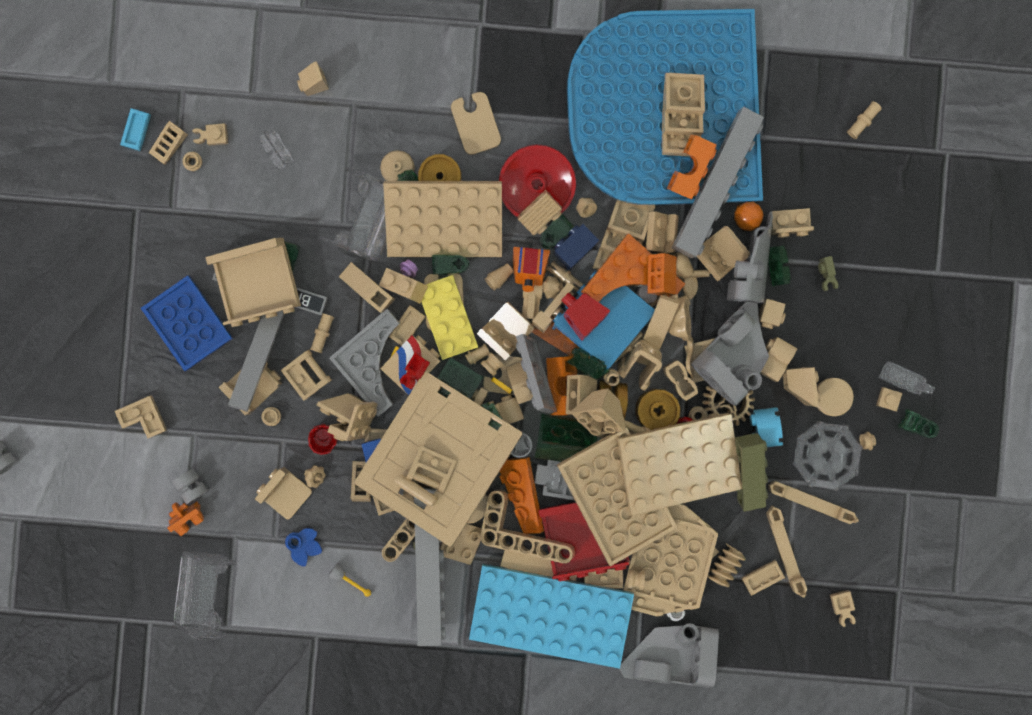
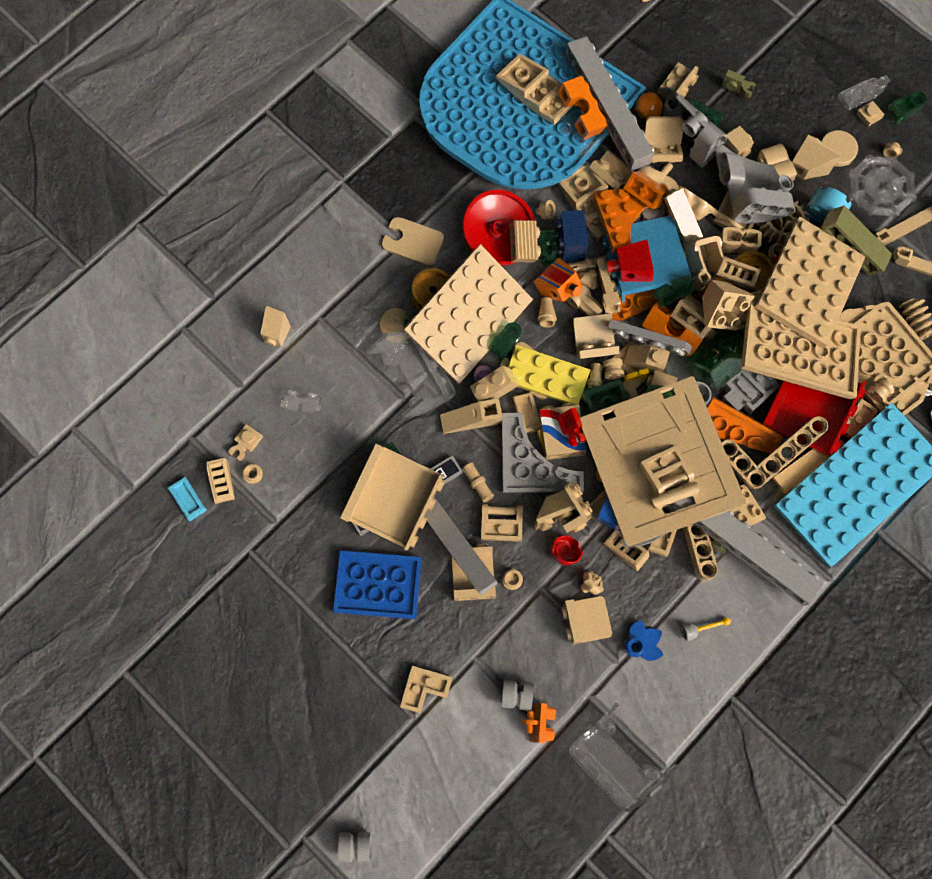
camera: 45 degrees left, 15 degrees down
(642, 419) = (750, 285): none -> tan slope

